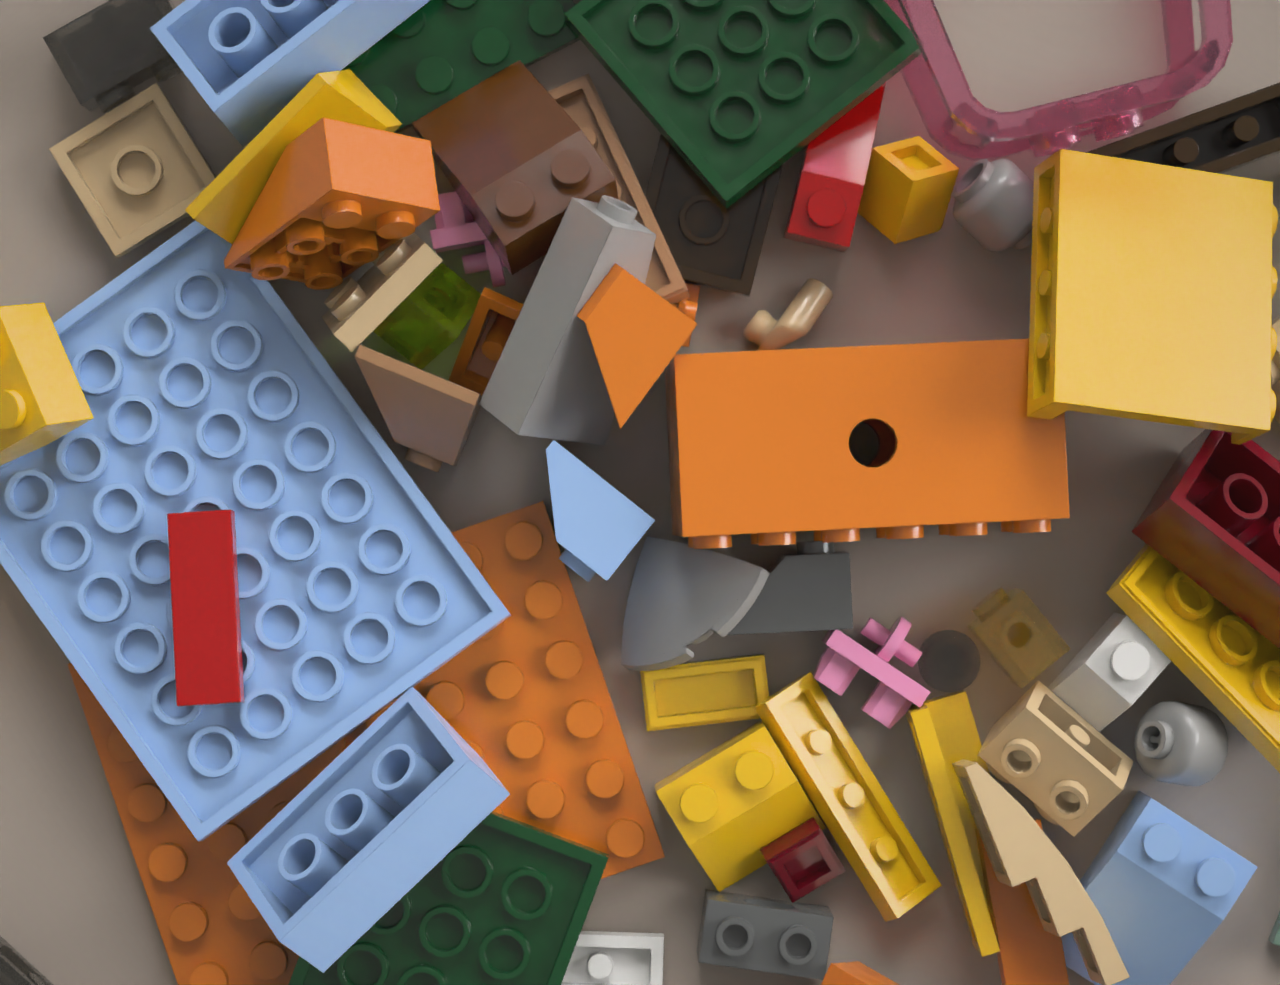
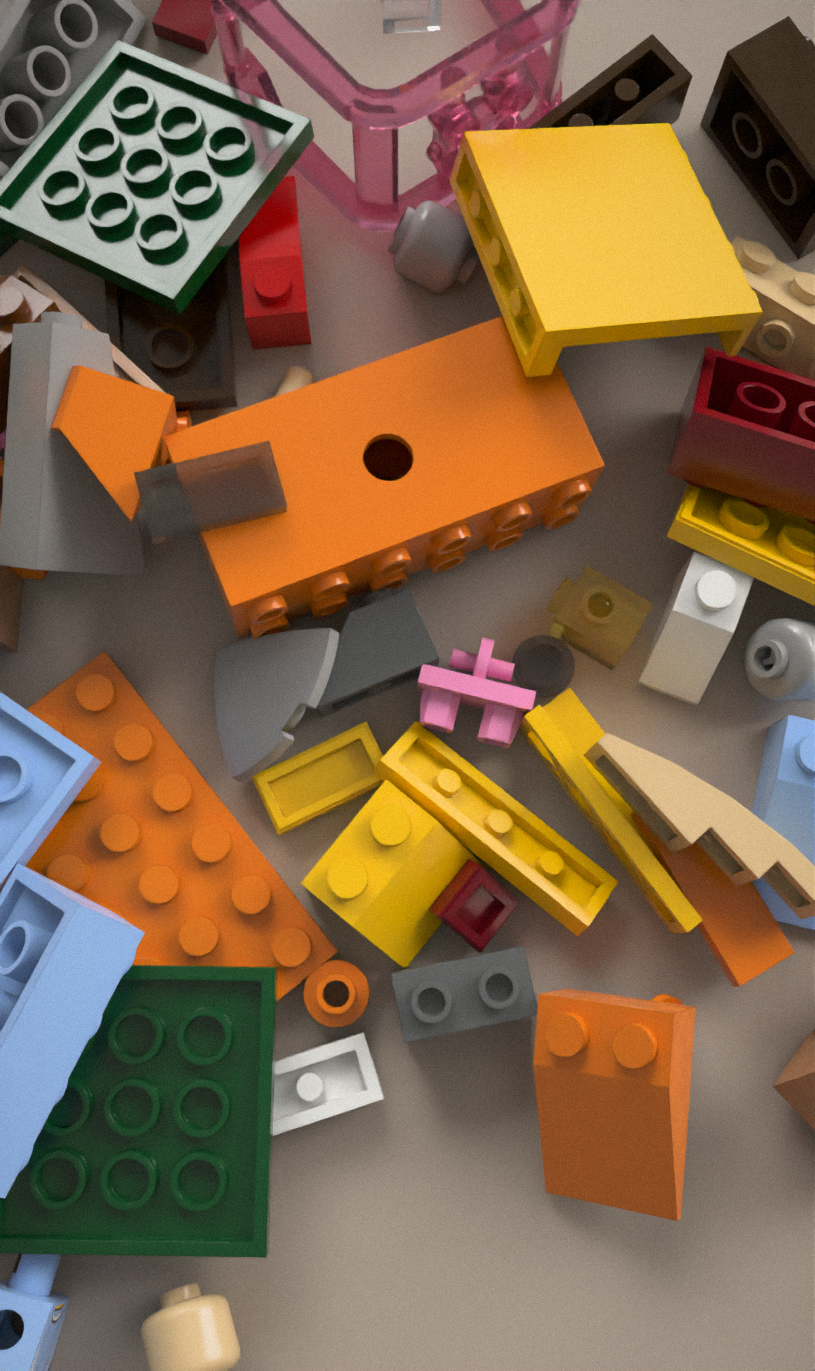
camera: 25 degrees left, 10 degrees down
(591, 516) = (148, 636): light blue slope -> none
(651, 872) = (358, 993): none -> orange plate
(701, 429) = (210, 492): none -> clear smoke tile
(907, 189) = (346, 263): yellow panel -> none
(1055, 759) = (682, 716): tan brick -> none

